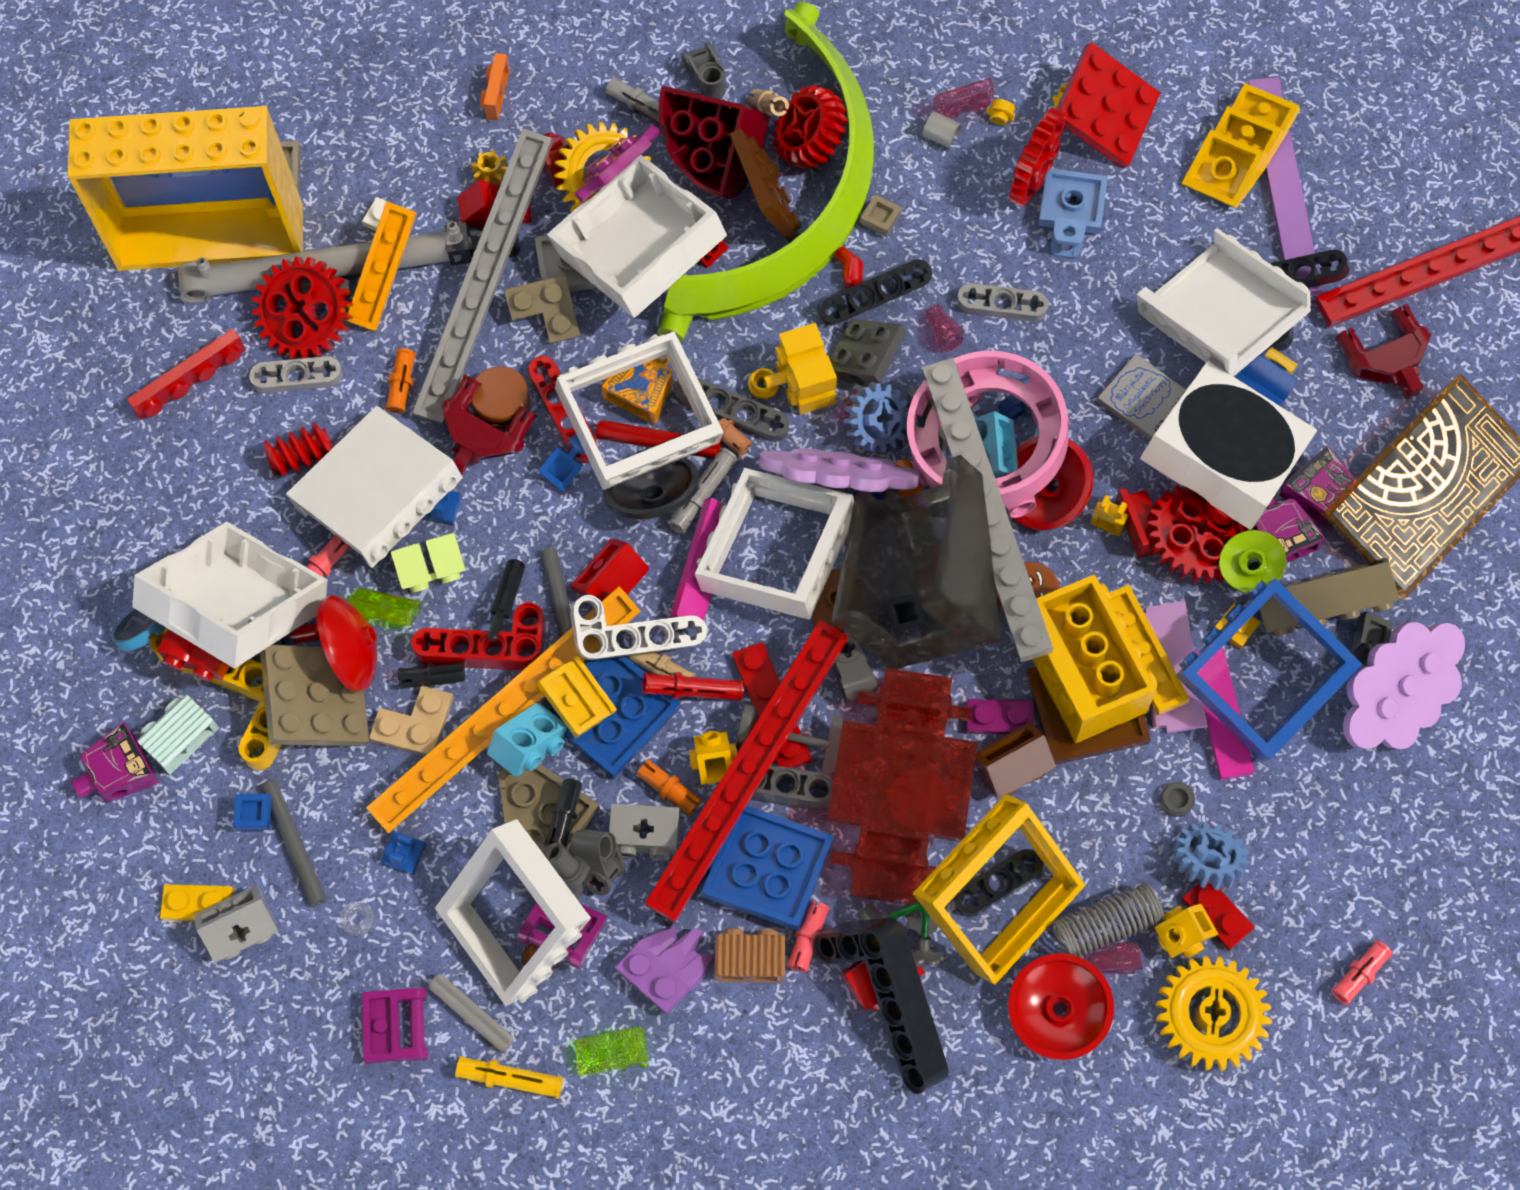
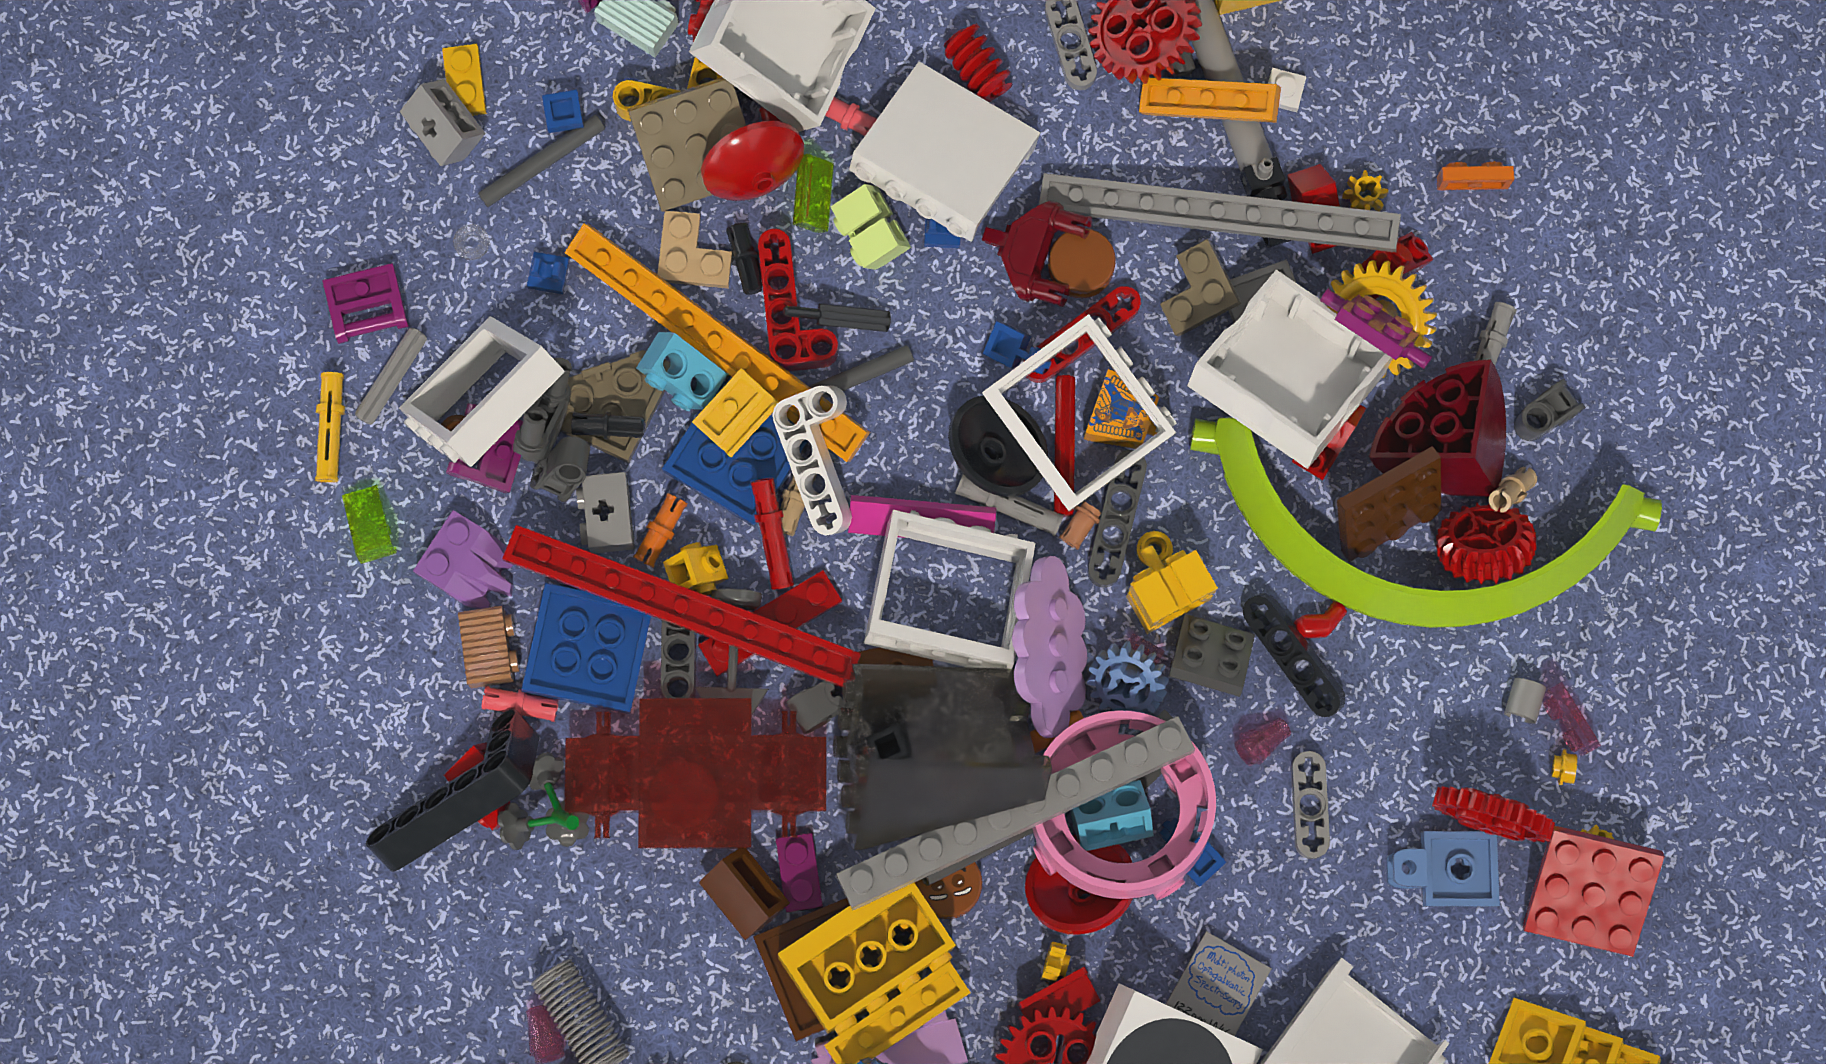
camera: 75 degrees right, 10 degrees up
(400, 381) = (1106, 152): orange pin -> none
(612, 567) = (893, 423): red panel -> none
(880, 215) = (1395, 646): dark tan plate -> none
(968, 859) = (608, 856): yellow window -> none
(1000, 869) = (585, 882): black beam -> none
(1064, 981) = (452, 972): red dish -> none

